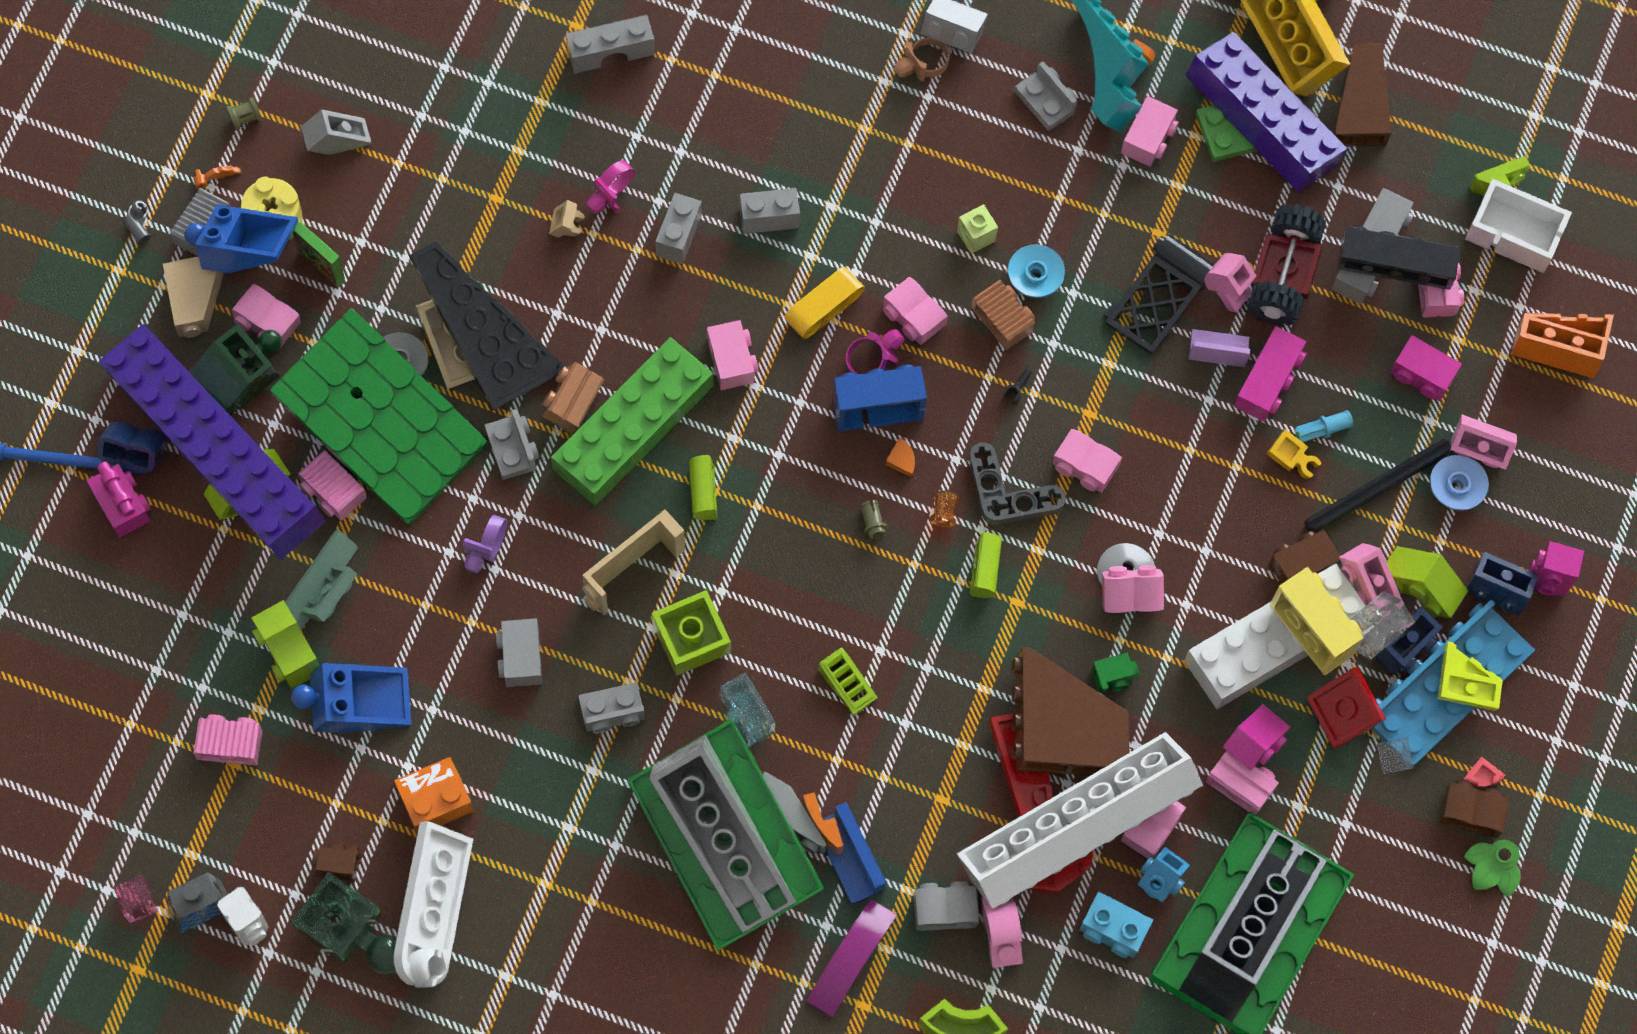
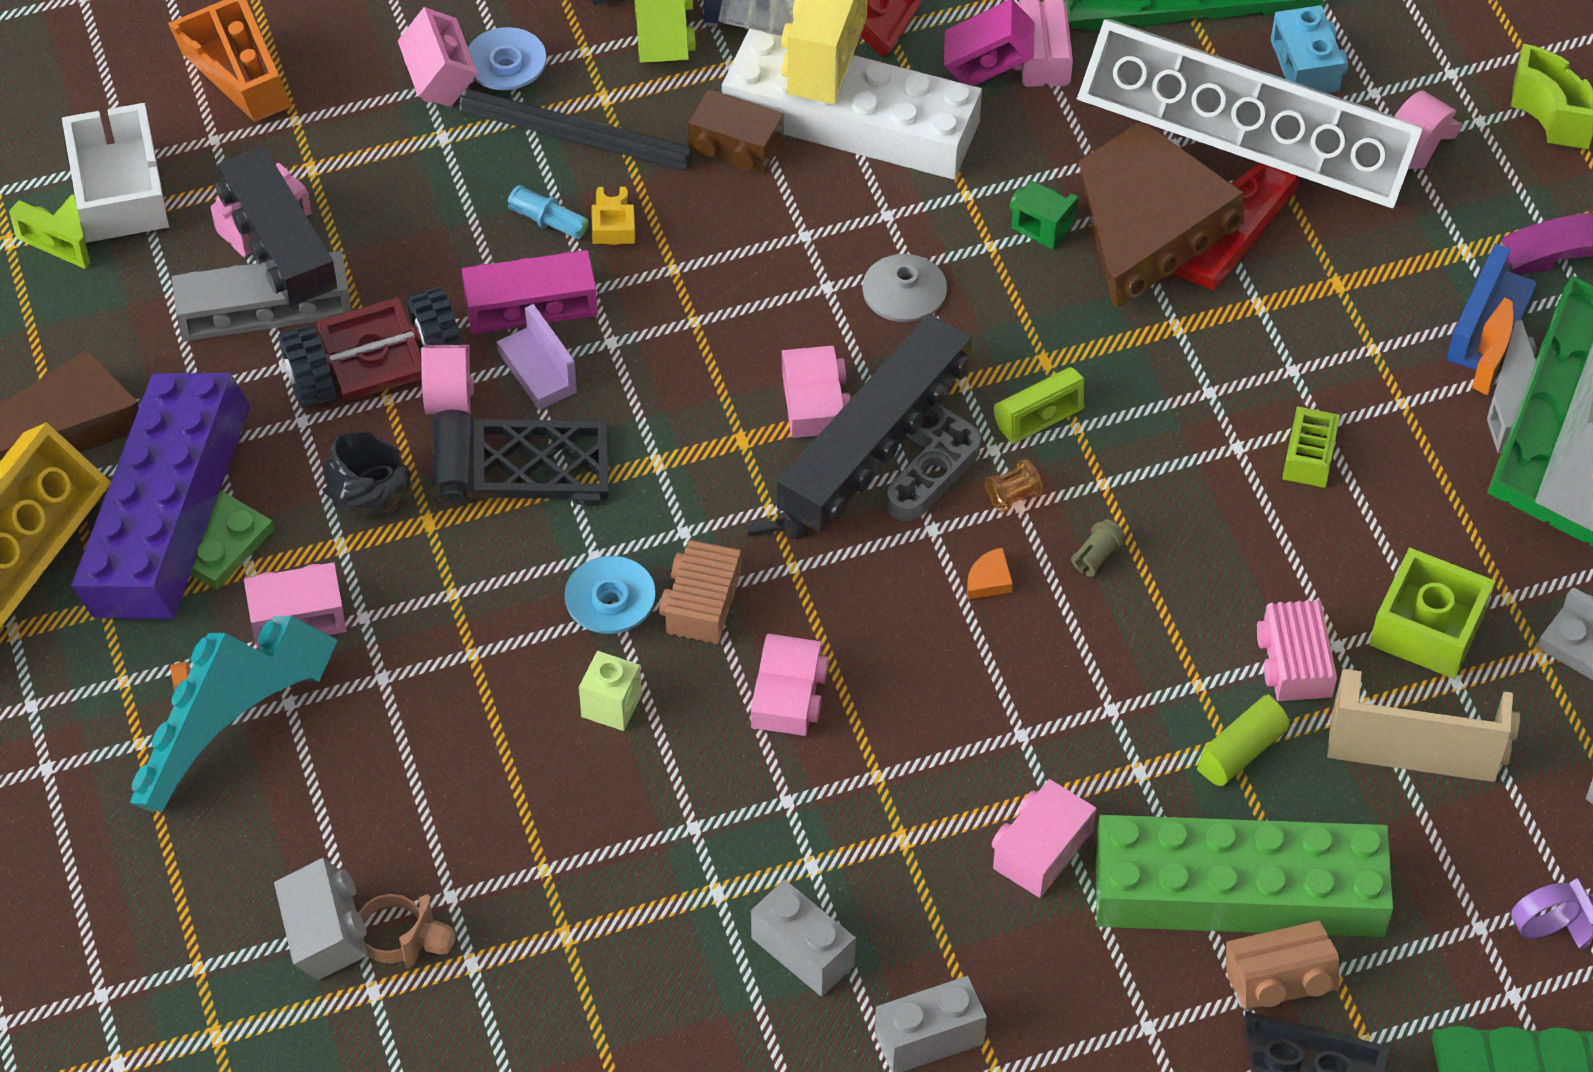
camera: 125 degrees left, 15 degrees down
(511, 446) = (1409, 997): light grey bracket -> none
(729, 557) = (1298, 651): none -> bright pink brick
(747, 709) = (1456, 497): clear light blue brick -> none
(824, 303) = (871, 789): yellow beam -> none
(886, 395) = (951, 624): blue piece -> none
(891, 340) = (856, 674): dark pink piece -> none
(946, 907) = (1452, 194): light grey brick -> none
(1033, 462) = (874, 423): none -> black brick
(1047, 96) = (336, 752): light grey bracket -> none
(1133, 589) = (932, 247): bright pink brick -> none
(1163, 875) = (1218, 33): dark azure brick -> none
(1201, 208) = (366, 475): none -> black hair
(1368, 572) = (706, 52): bright pink brick -> none
(1425, 368) = (386, 163): dark pink brick -> none

